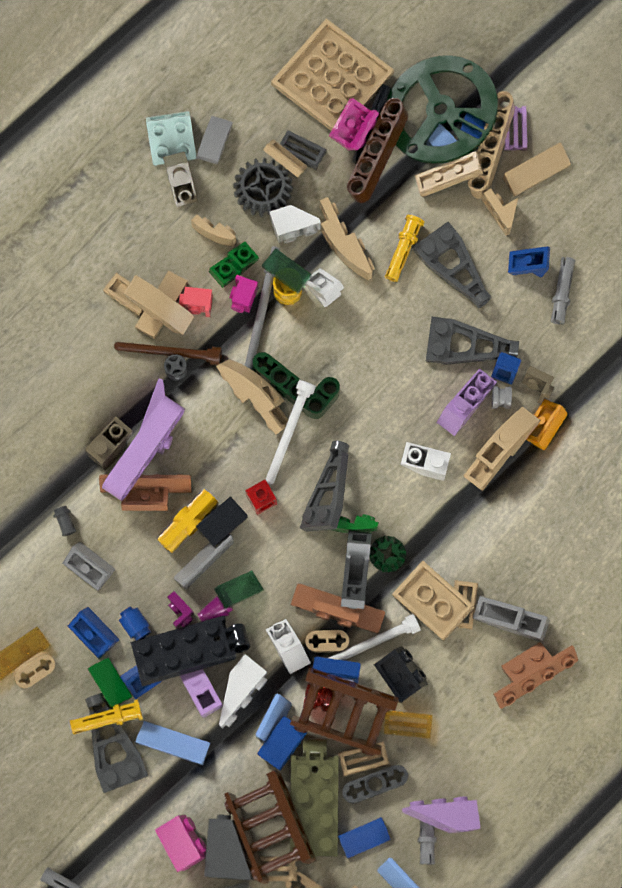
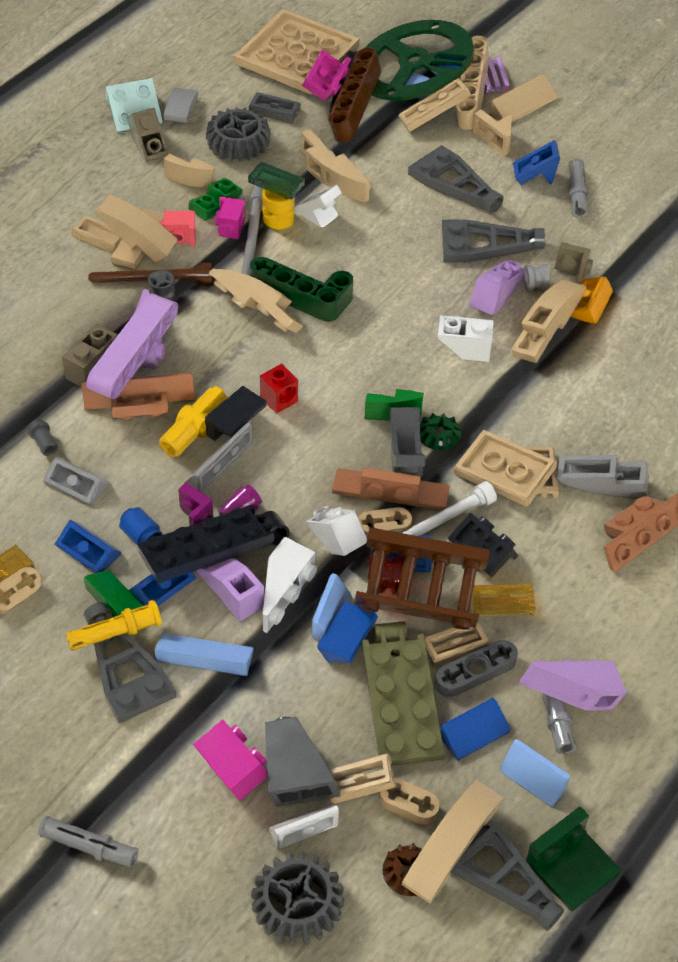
camera: 10 degrees left, 25 degrees down
(238, 589) = (266, 477): clear green tile -> none
(285, 158) = (252, 103): tan tile -> none
(292, 222) = (278, 154): white slope -> none
(292, 829) = (379, 716): reddish brown fence -> none
(304, 391) = (314, 278): white piece -> none
(327, 516) = (353, 390): dark grey plate -> none
(406, 239) = (400, 162): yellow pin -> none
(506, 368) = (534, 252): blue slope -> none

